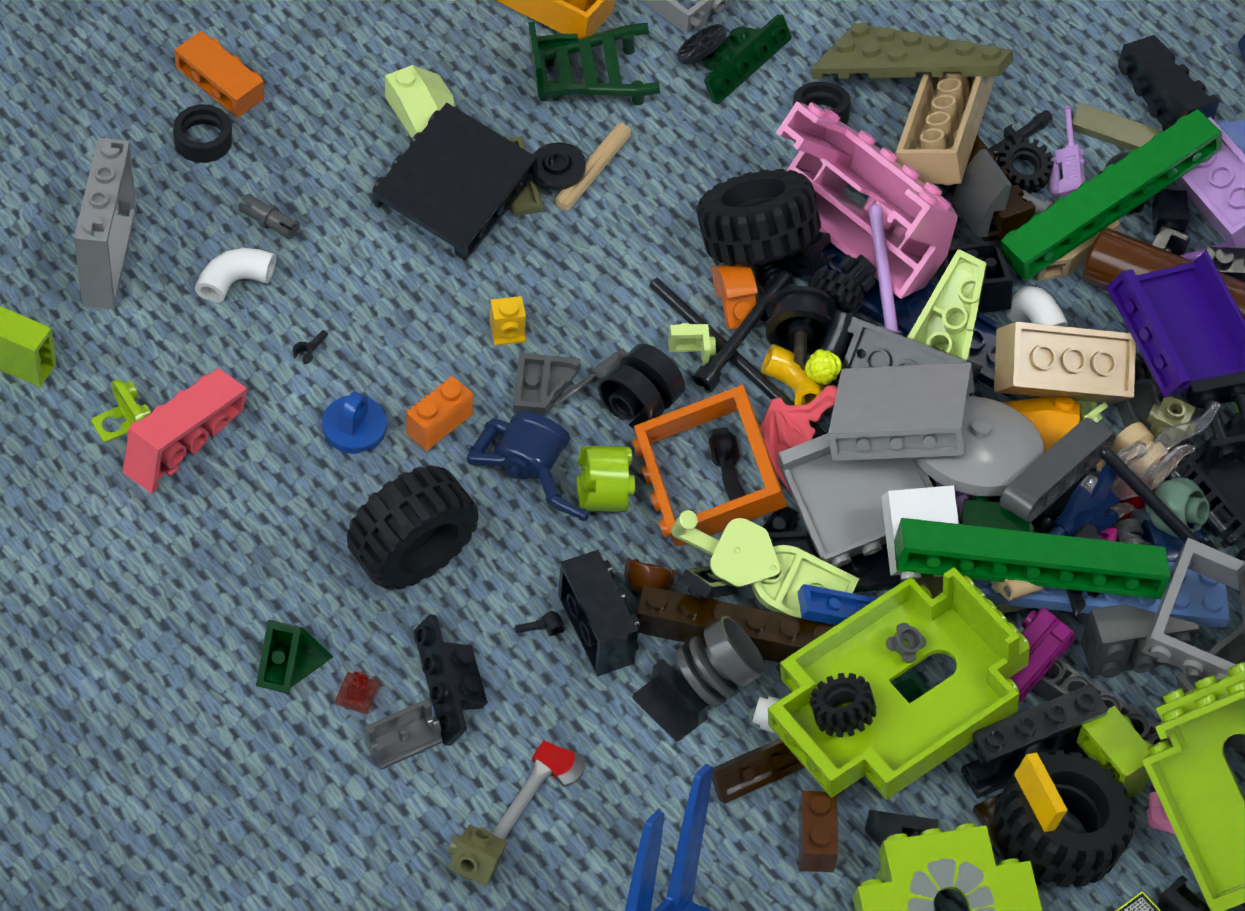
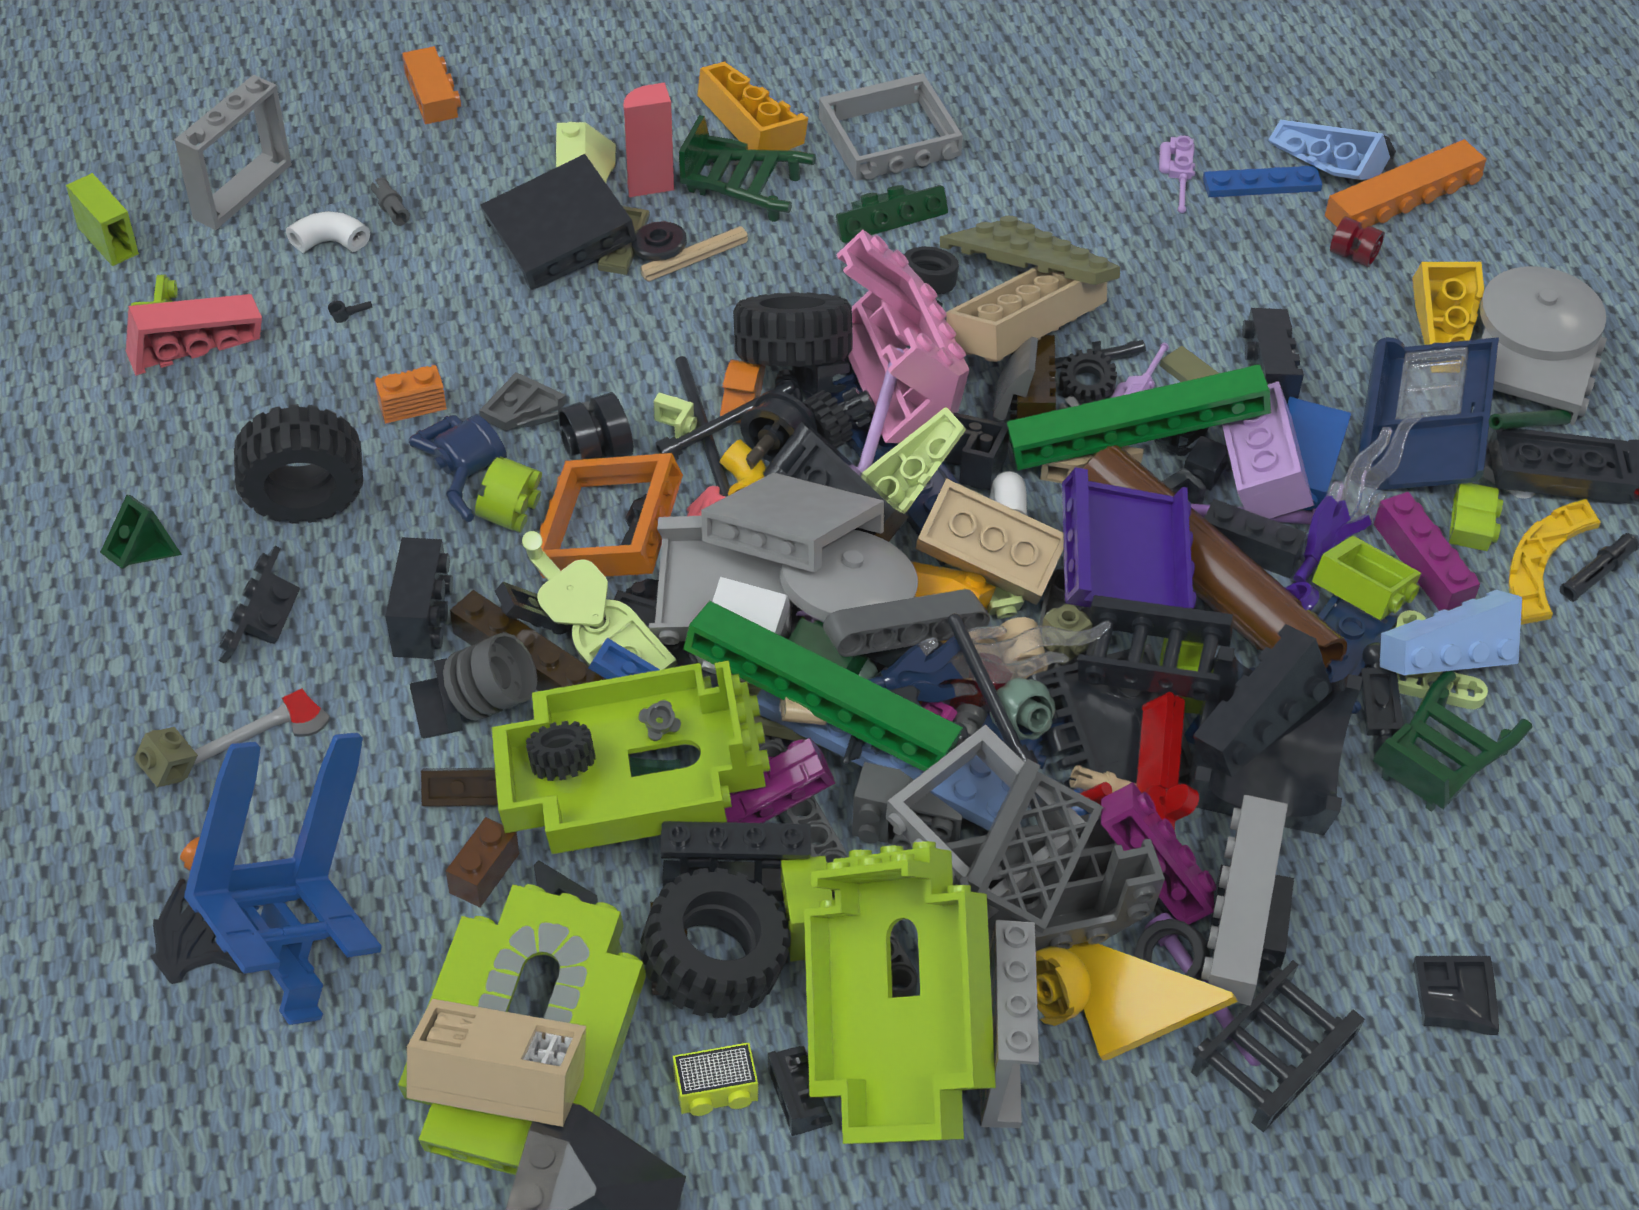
camera: 30 degrees right, 5 degrees down
(199, 151) = (383, 137): black tyre -> none
(354, 423) = (338, 378): blue tile -> none
(357, 692) = (176, 589): clear red tile -> none
(403, 734) = (183, 634): dark grey hinge -> none
(505, 66) = (649, 140): none -> coral brick
(507, 320) = (525, 343): yellow brick -> none
(550, 621) = (380, 595): black hand -> none
(642, 574) = (484, 583): reddish brown hair -> none
(701, 44) = (857, 189): black wheel -> none
(823, 367) = (763, 465): neon yellow piece -> none
(1040, 792) = (681, 897): yellow tile -> none

